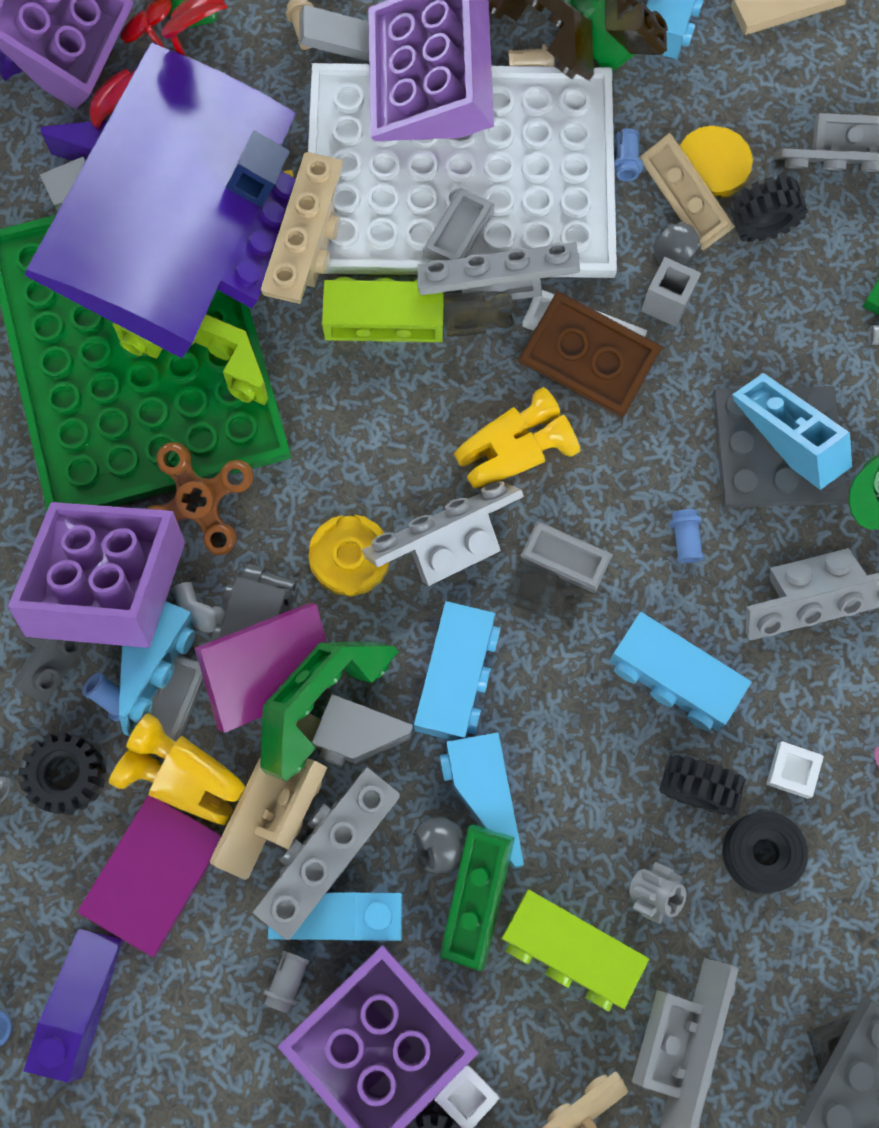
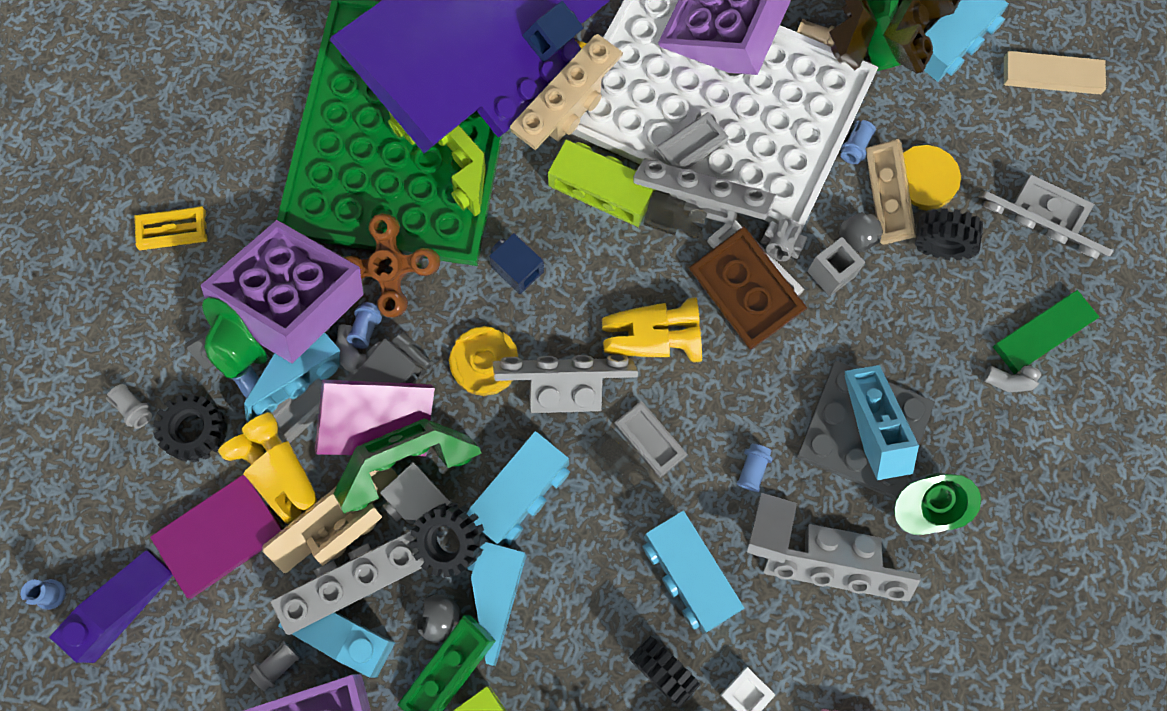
camera: 25 degrees right, 0 degrees up
(65, 653) = (229, 341): none -> green piece
(199, 566) = (366, 319): none -> medium blue pin
(333, 435) = (516, 263): none -> dark blue brick
(405, 780) = (431, 550): none -> black tyre
(603, 287) = (784, 240): none -> light grey gear
(738, 588) = (772, 528): none -> light grey tile

